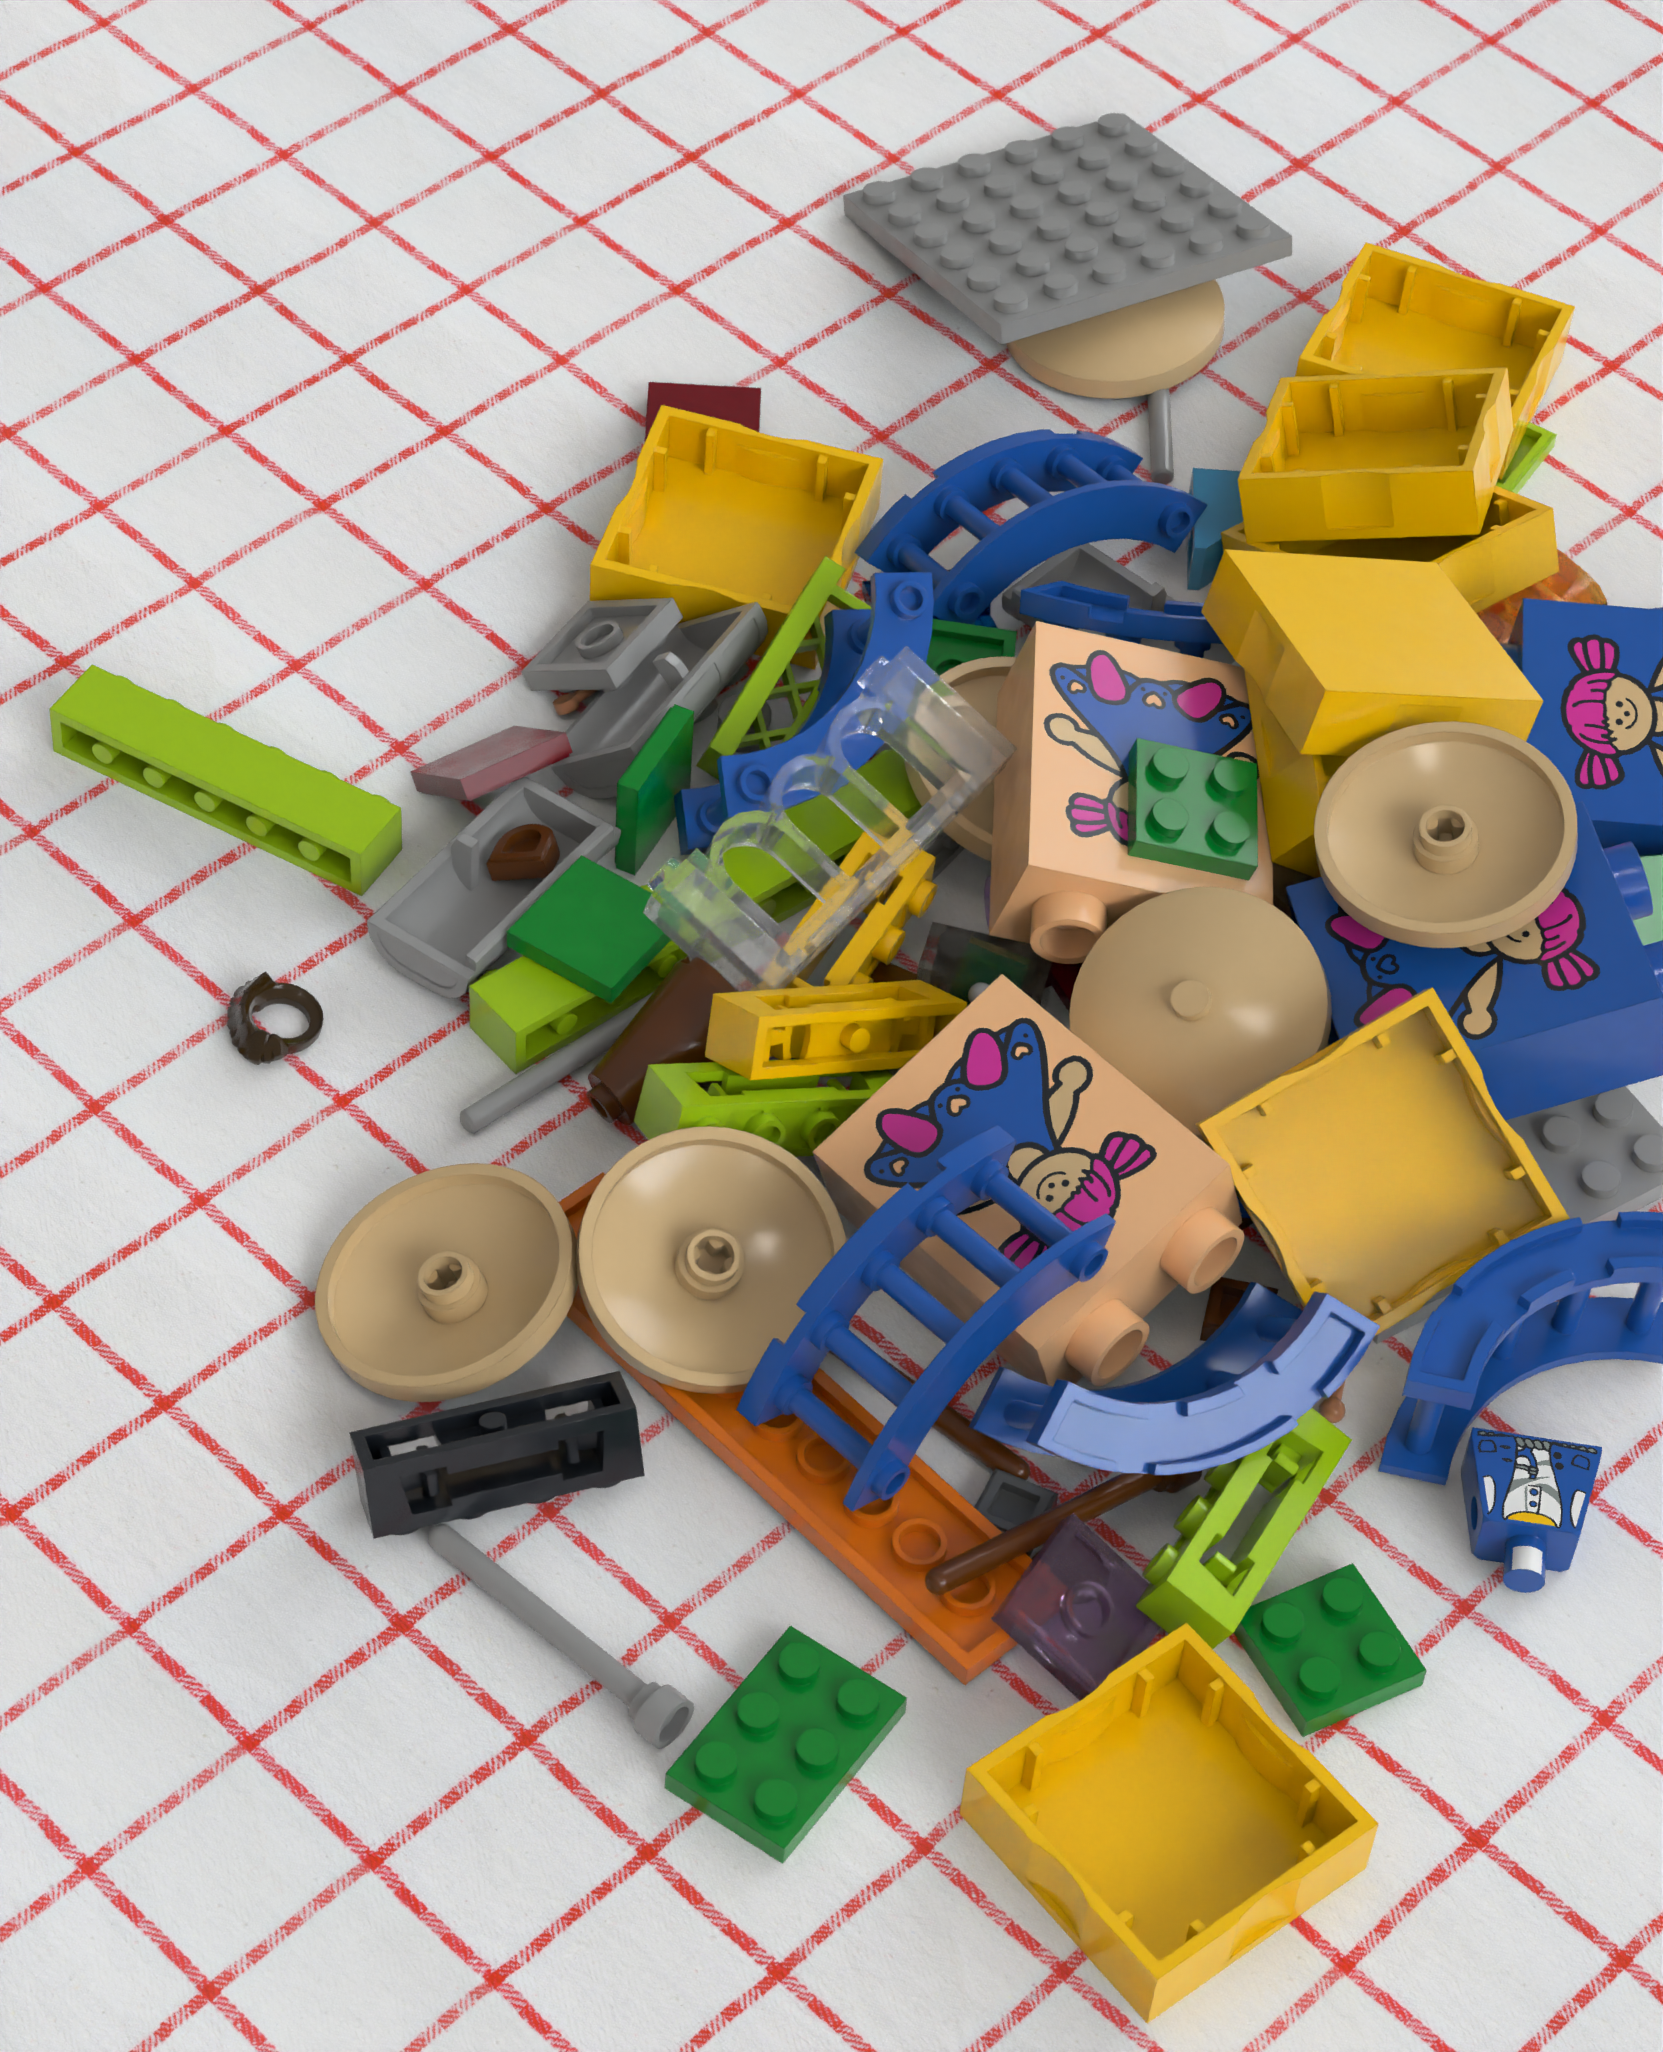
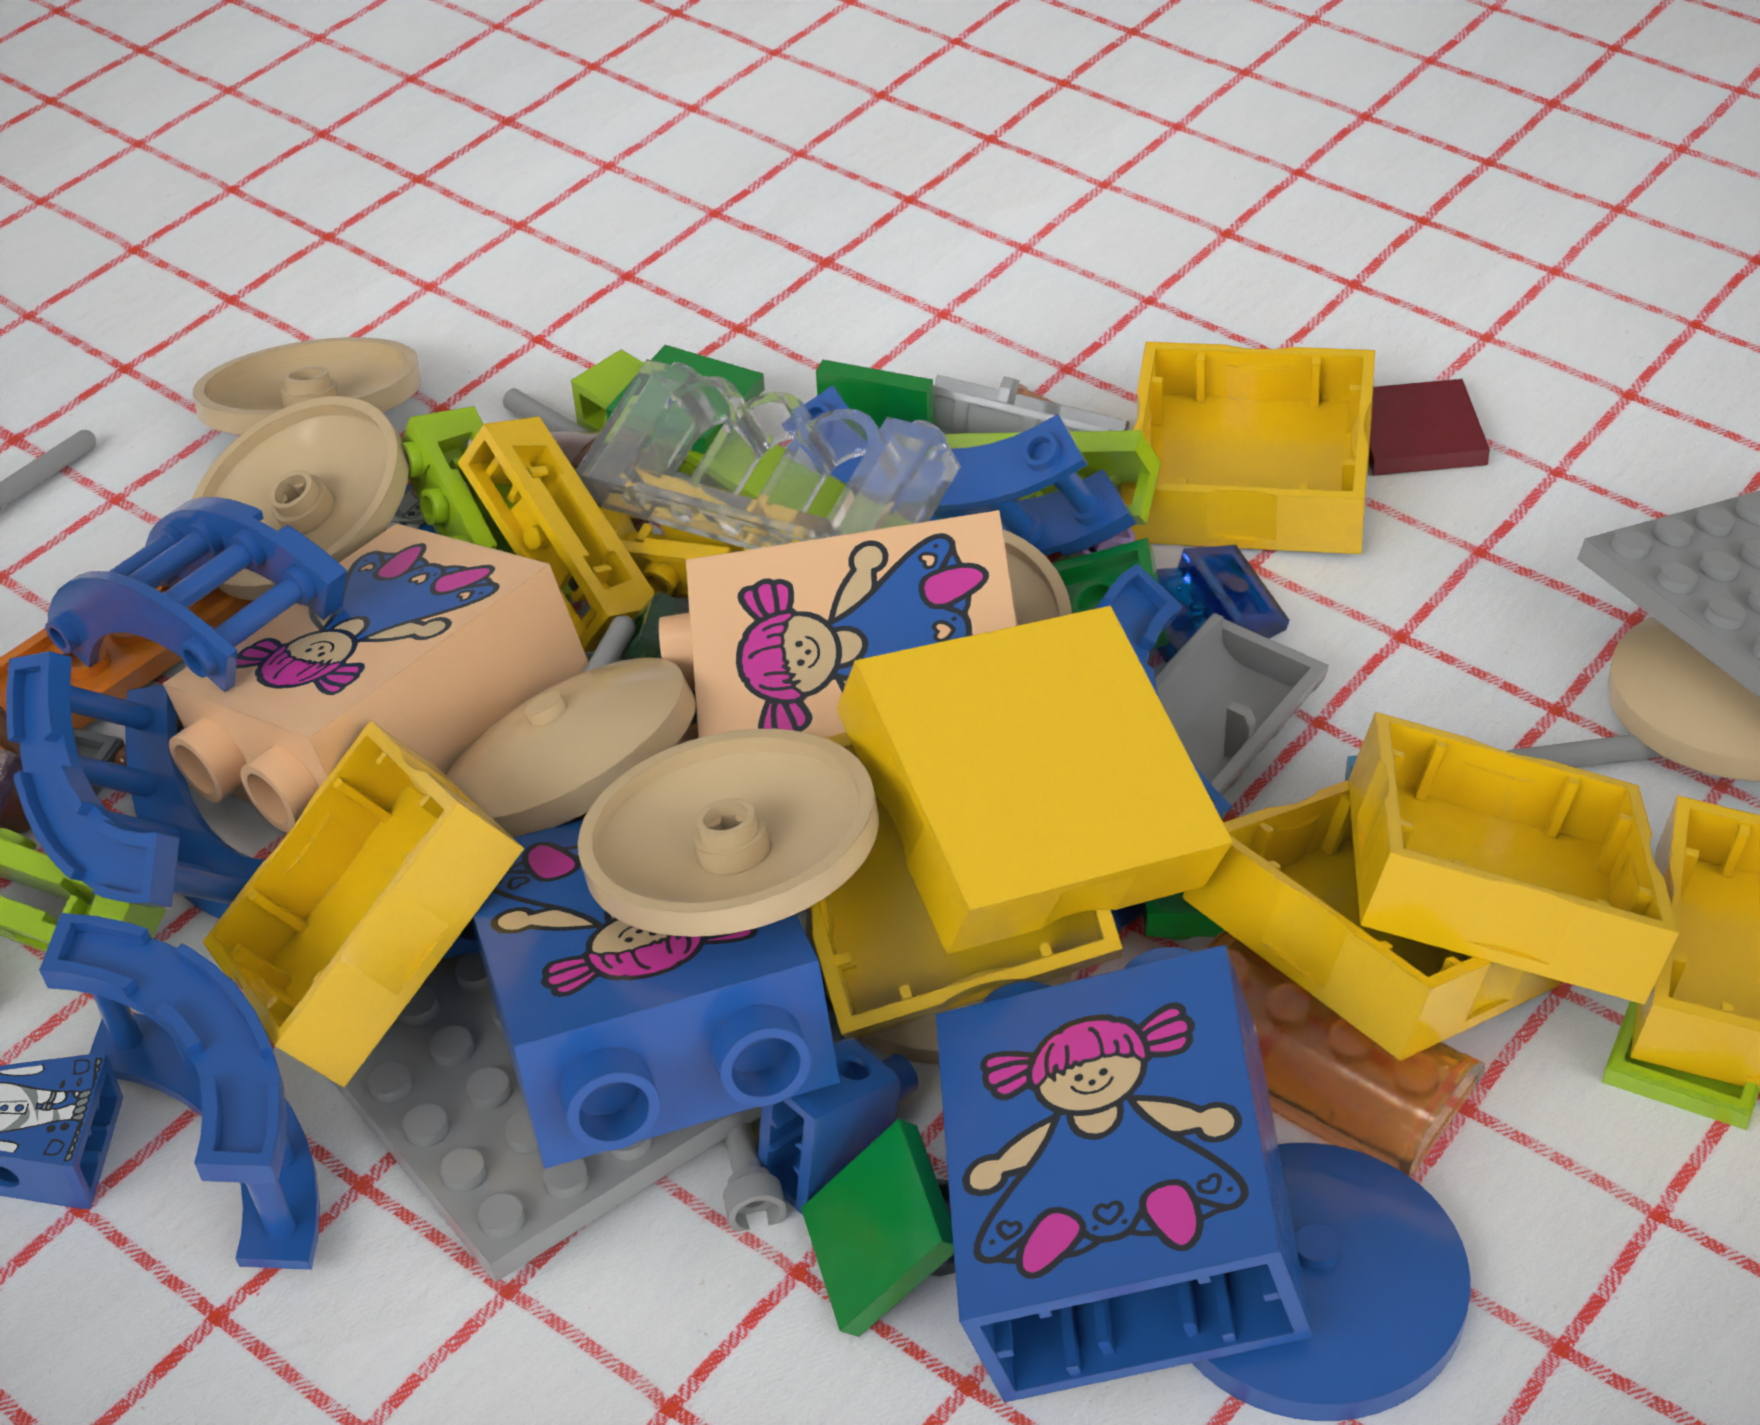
camera: 90 degrees right, 5 degrees down
(227, 779) = (854, 219): lime brick -> none
(257, 1044) = (628, 270): dark brown piece -> none
(452, 915) = (752, 339): light grey container -> none
(492, 763) = (898, 336): tile -> none
(497, 1455) = (129, 432): black brick -> none
(524, 854) = (792, 368): reddish brown tile -> none
(602, 645) = (1080, 384): light grey plate -> none
(1097, 504) = (1347, 566): blue fence -> none
(1192, 809) = (794, 669): green plate -> none

